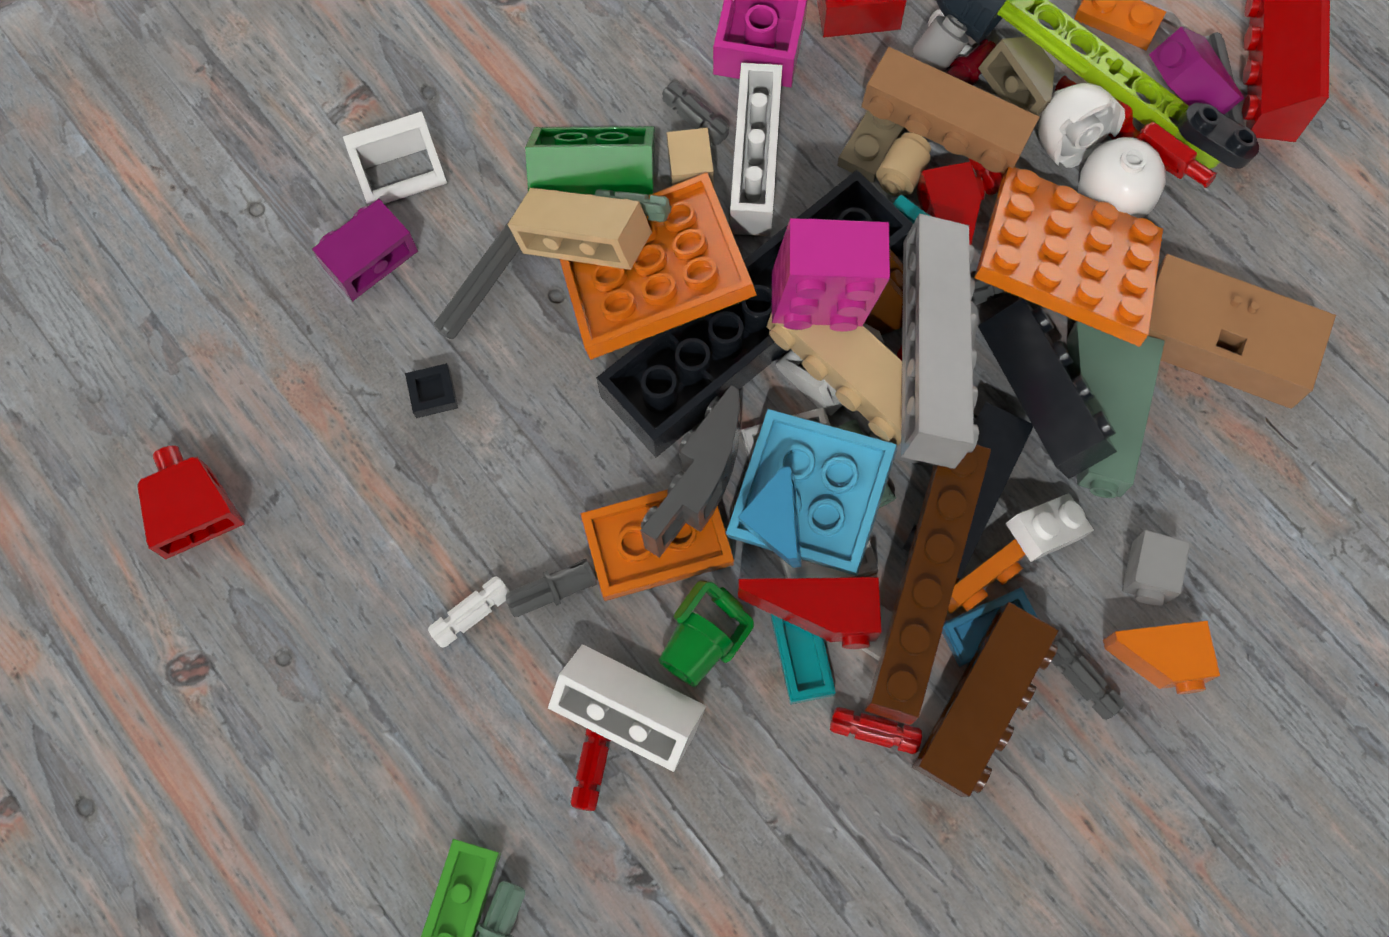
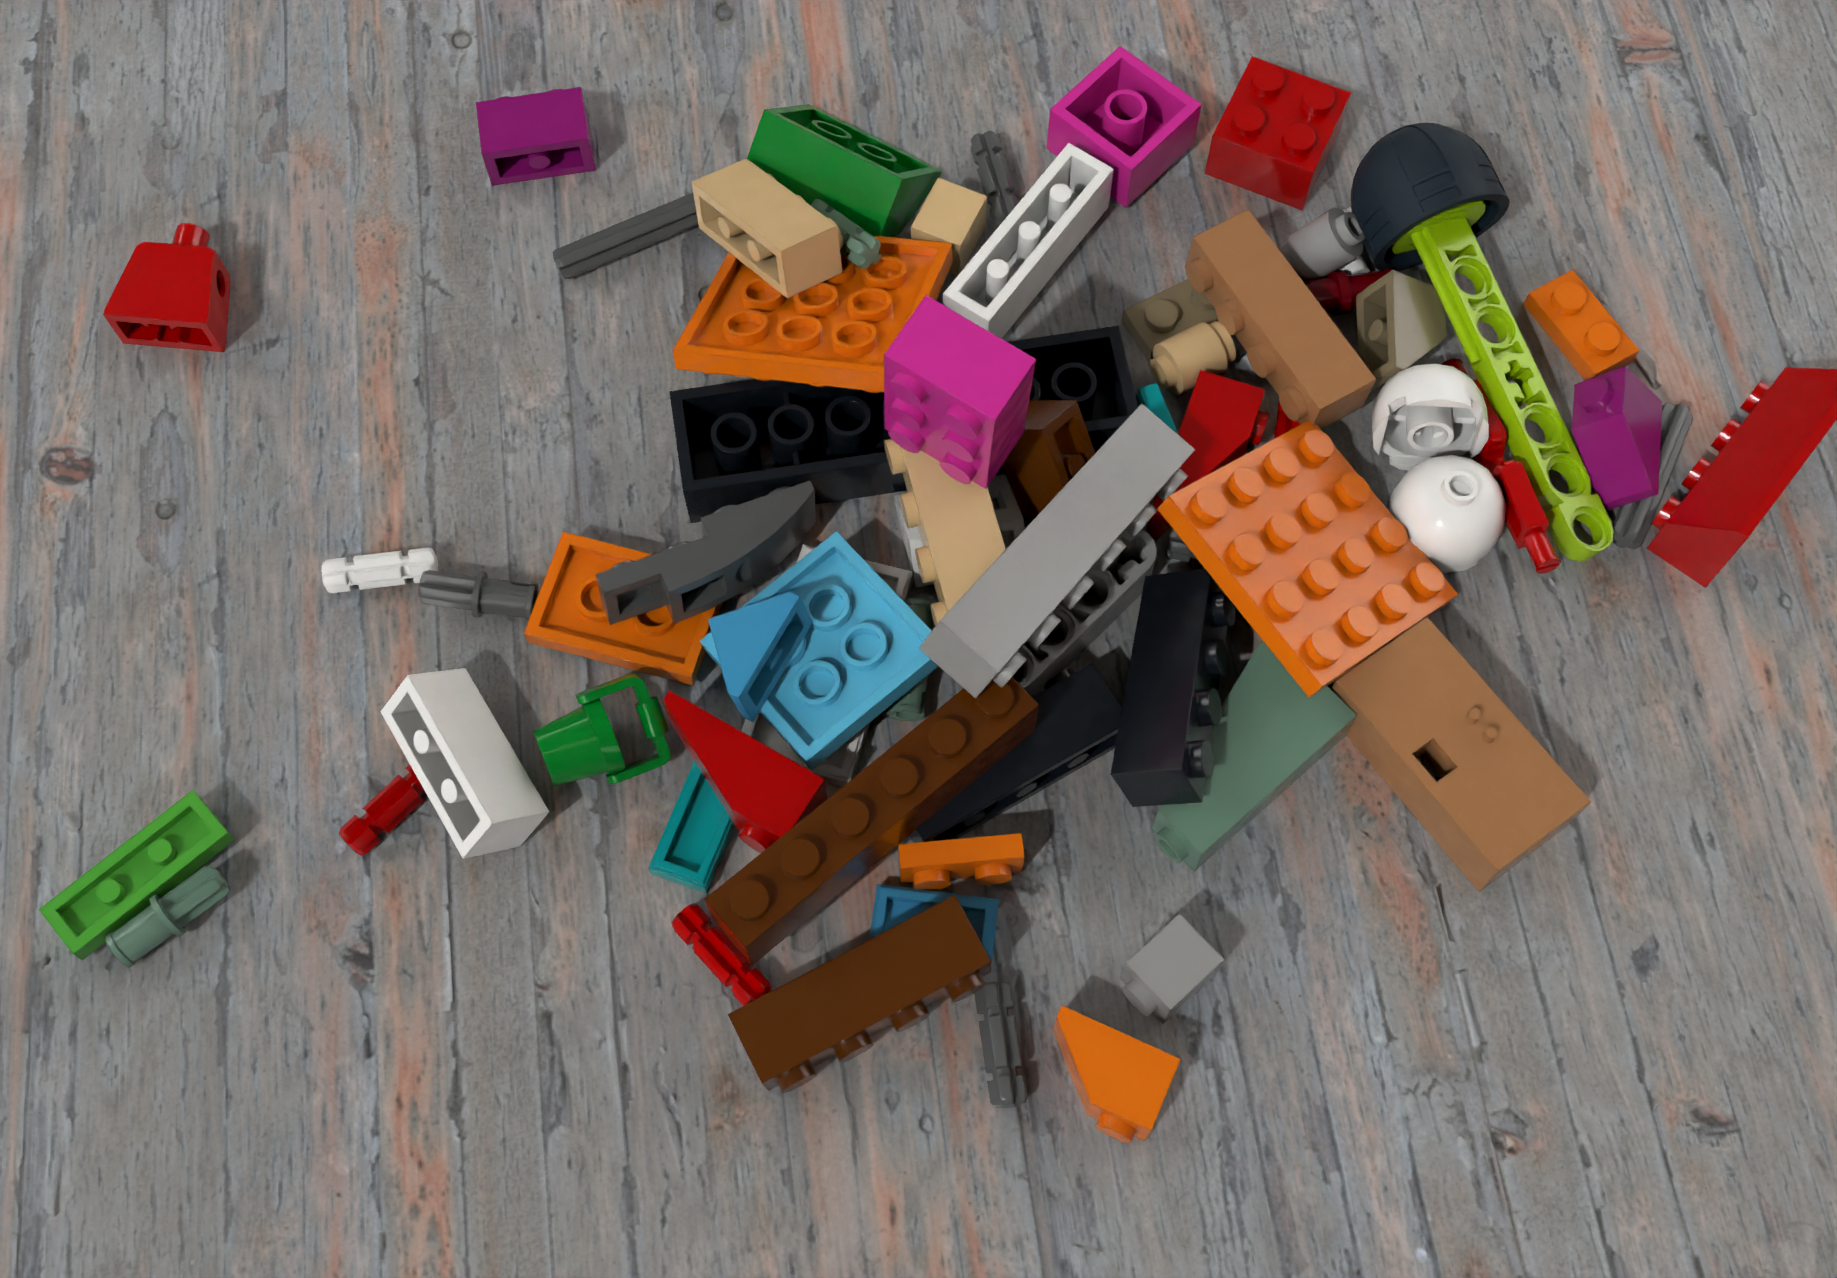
camera: 30 degrees right, 5 degrees down
(388, 143) = (636, 39): white tile -> none
(431, 390) = (502, 318): black plate -> none
(1049, 526) = (1072, 847): white plate -> none
(1218, 135) = (1596, 521): black plate -> none

